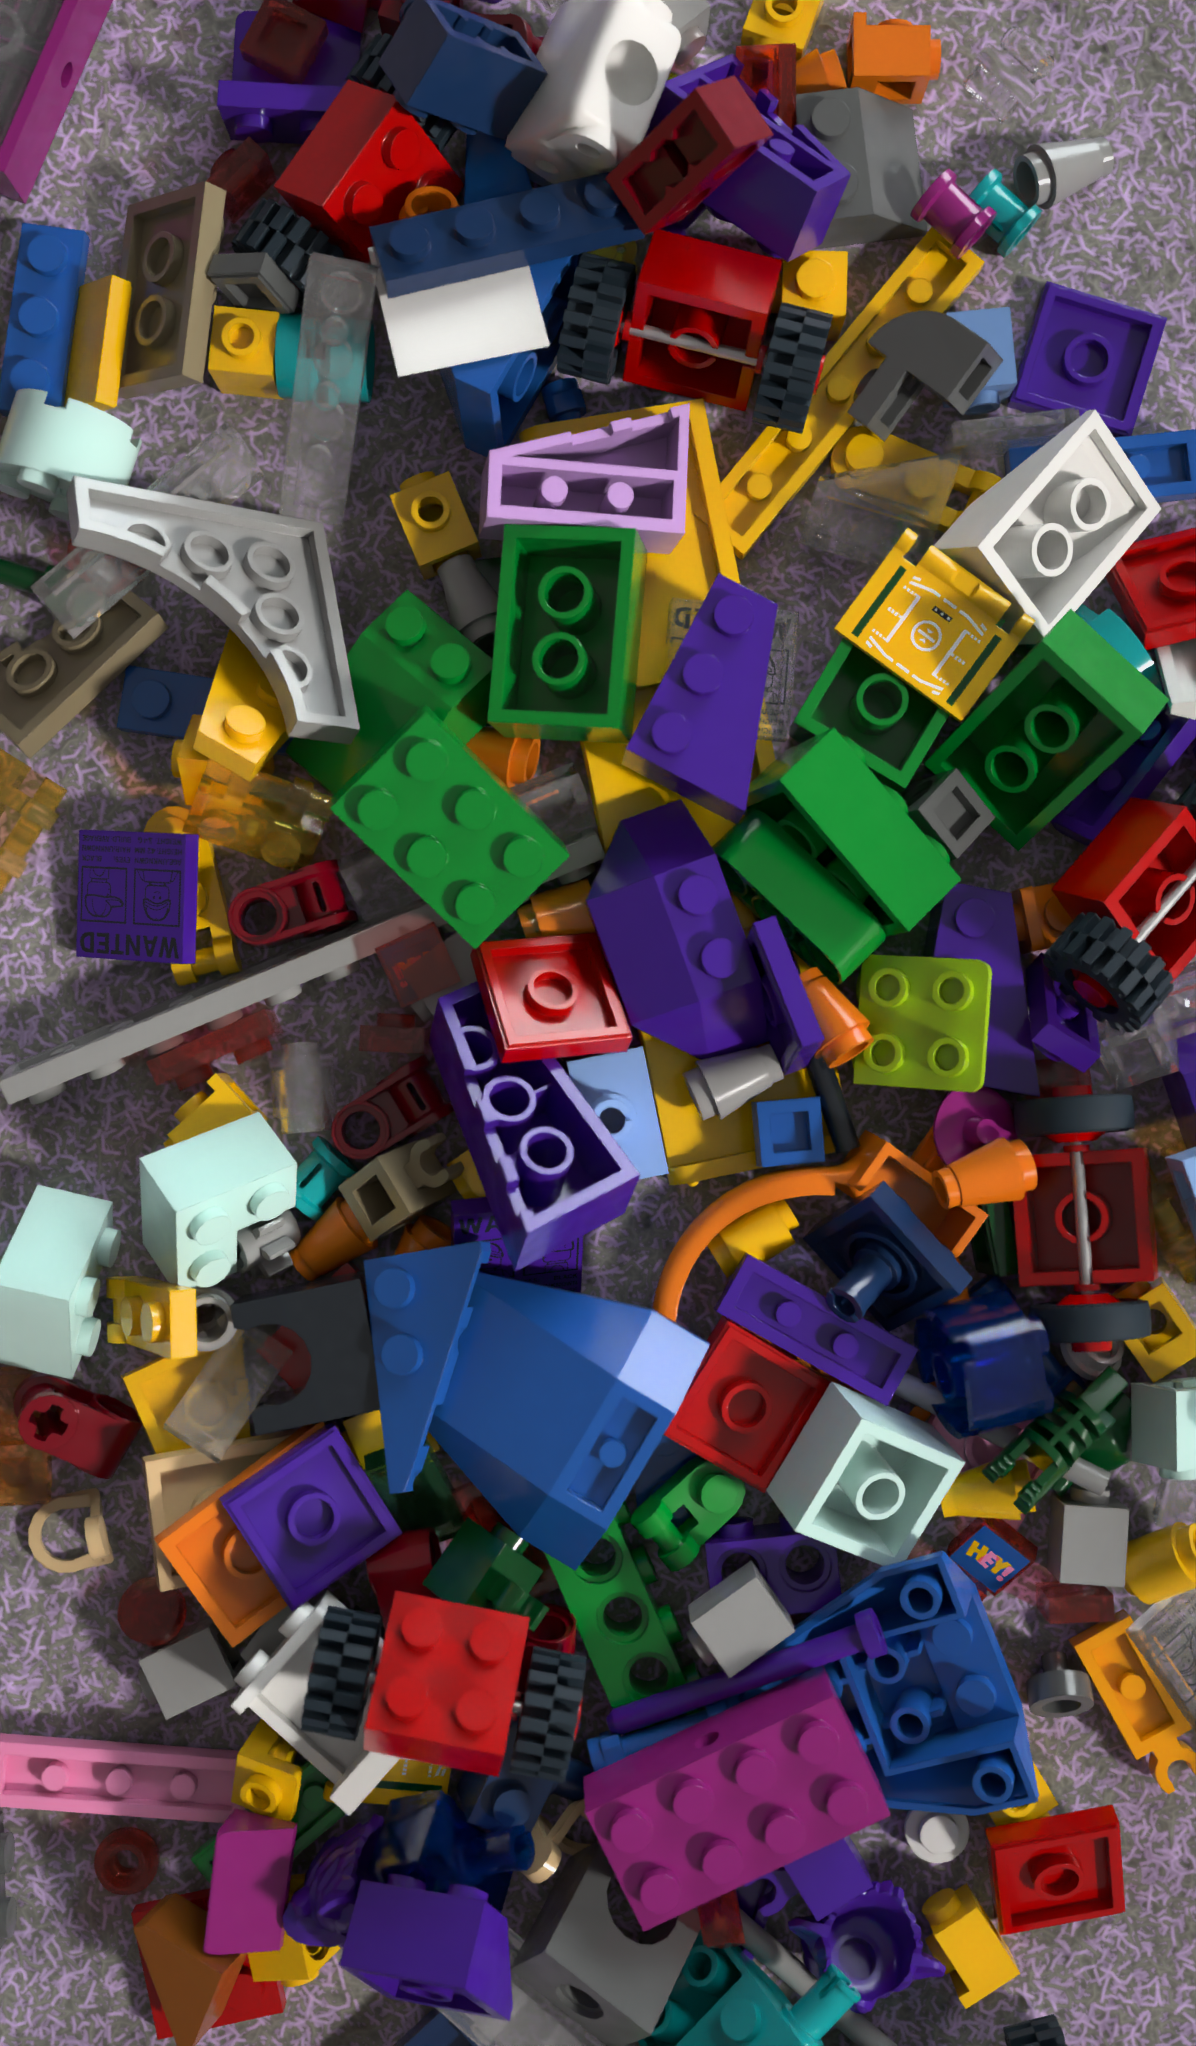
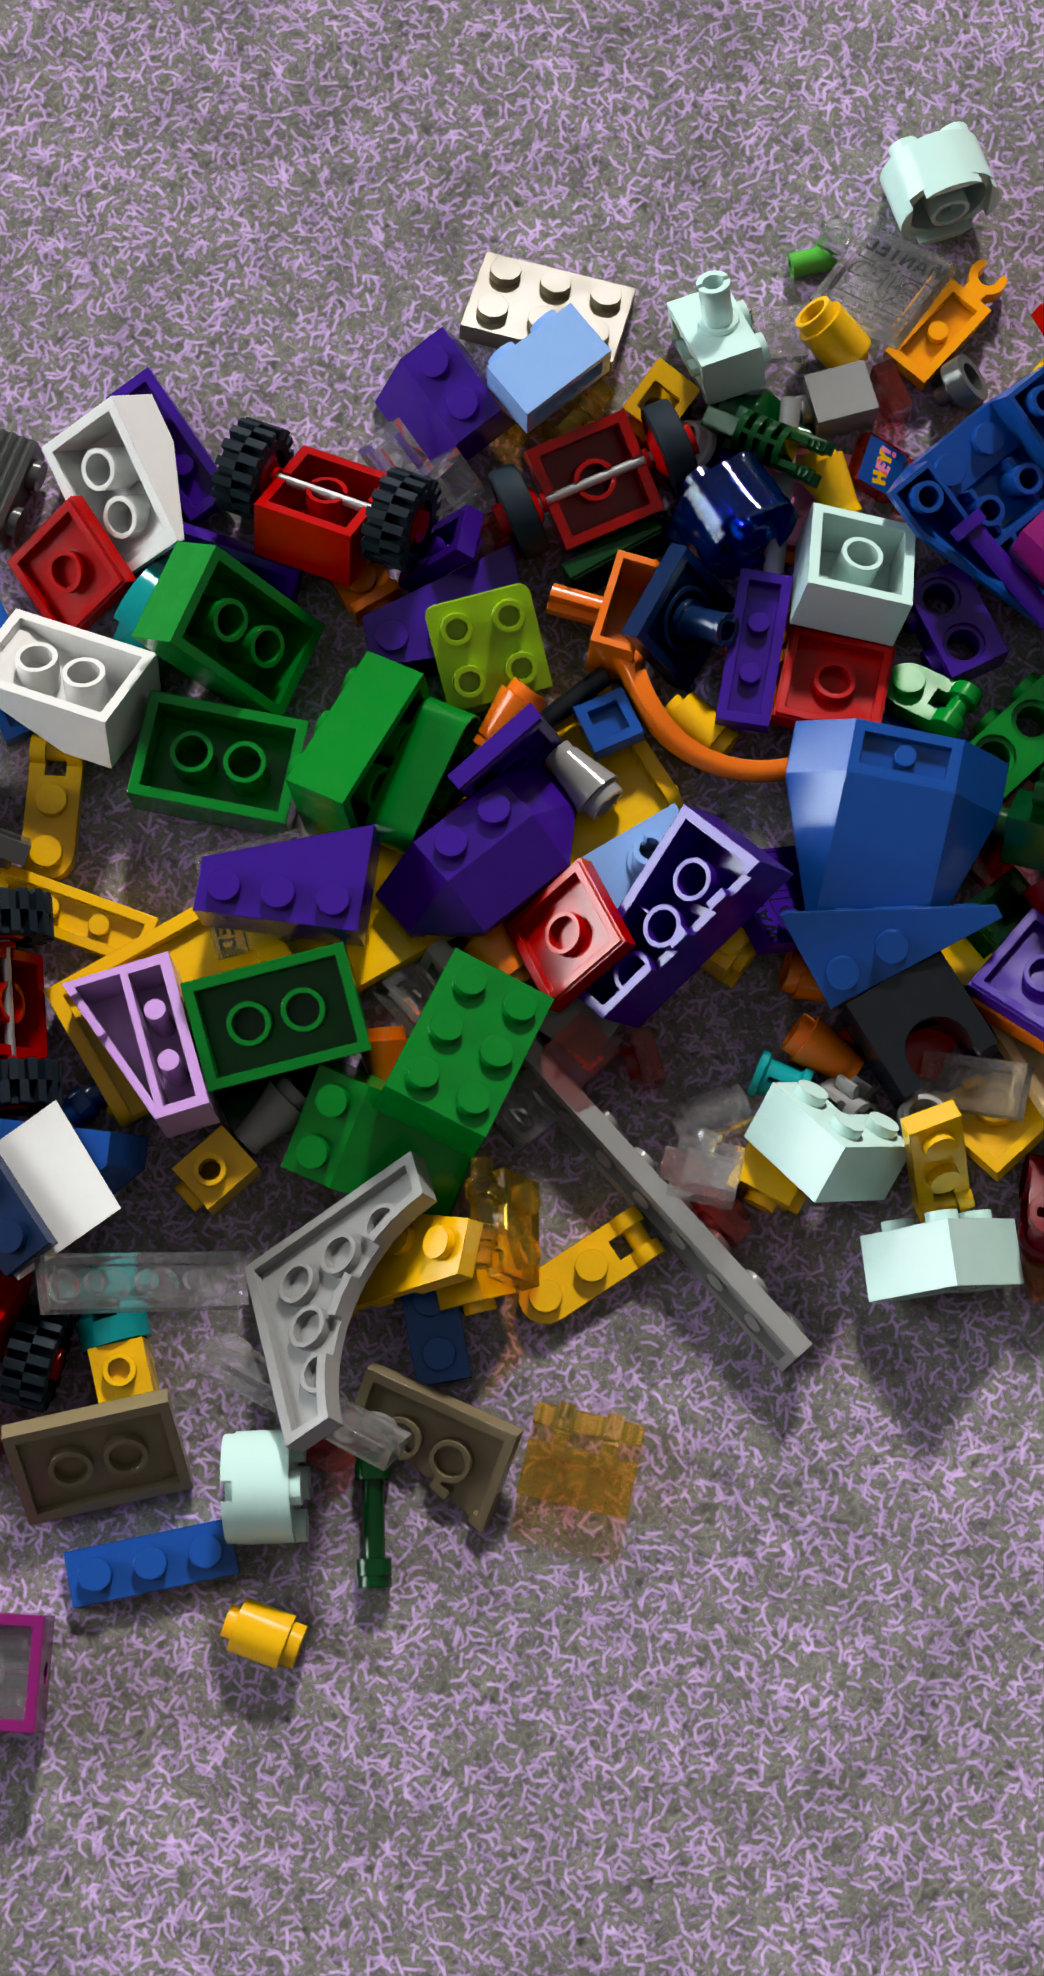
camera: 110 degrees left, 10 degrees down
(99, 342) = (158, 1504): yellow tile -> none
(137, 896) = (605, 1305): dark purple tile -> none
(231, 1051) = (703, 1168): none -> clear brick
(254, 282) = (71, 1375): dark grey tile -> none
(296, 906) = (563, 1170): dark red piece -> none
(394, 1109) = (703, 1039): dark red piece -> none
(400, 1186) = (761, 1007): dark tan brick -> none
(738, 1620) = (998, 628): light grey brick -> none
(870, 508) = (89, 820): clear wing -> none
(932, 626) = (174, 741): yellow piece -> none
(947, 810) = (313, 685): dark grey brick -> none
(971, 1121) = (560, 580): magenta piece -> none
(986, 1176) = (587, 555): orange cone -> none

